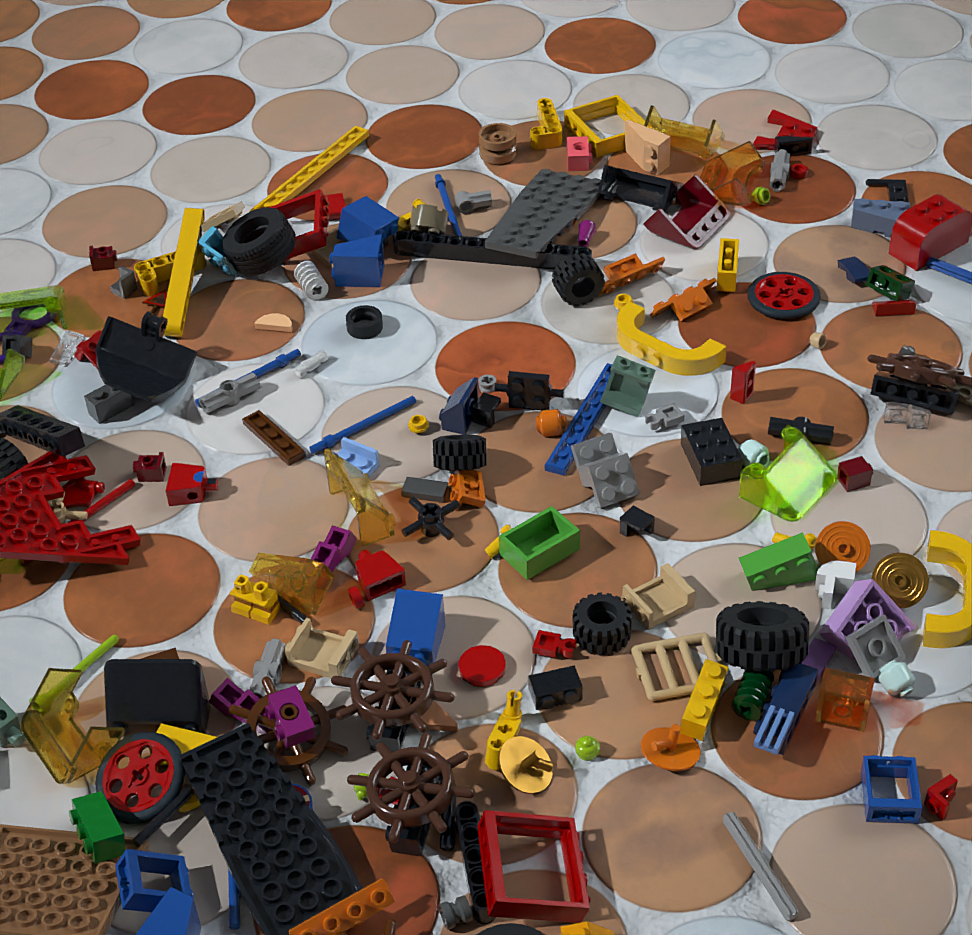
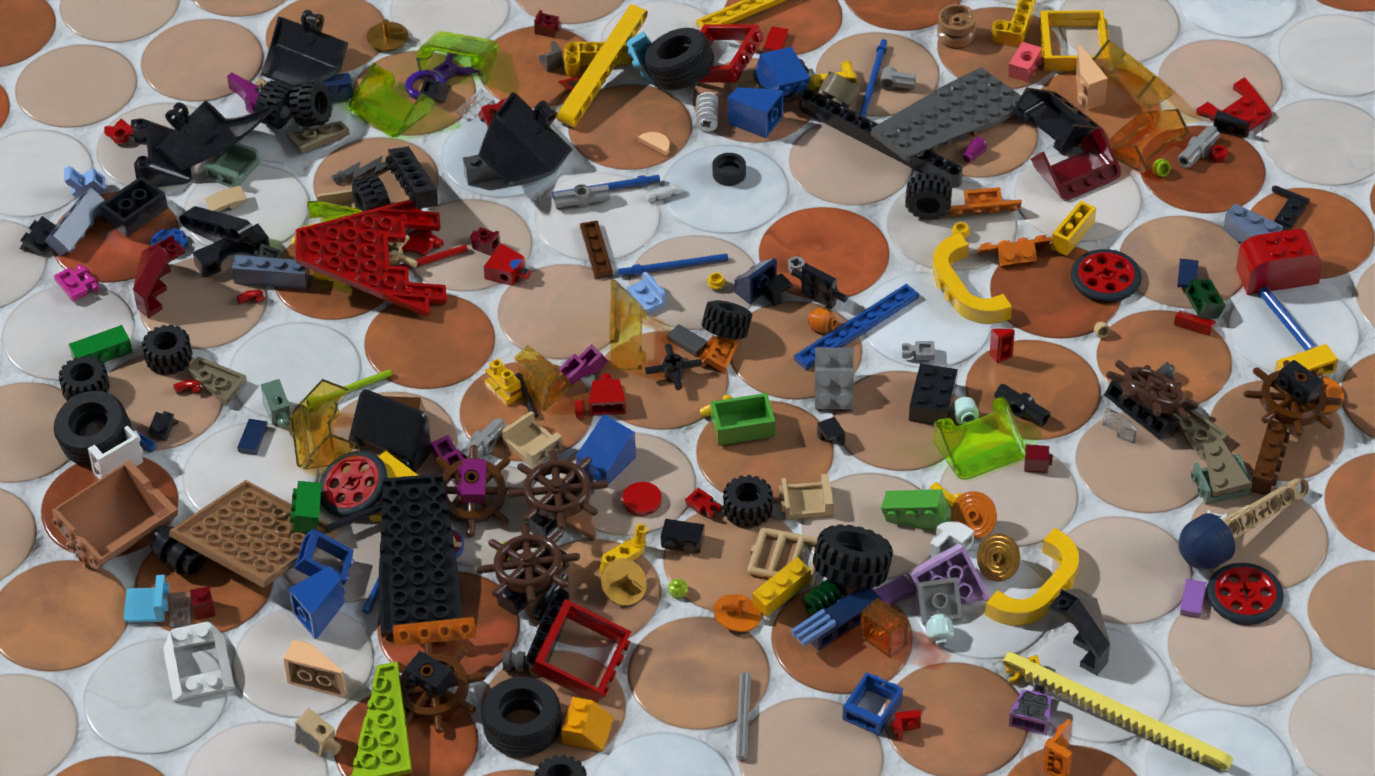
camera: 25 degrees right, 5 degrees up
(225, 216) = (664, 21): tan plate -> none
(627, 386) = (899, 313): sand green panel -> none

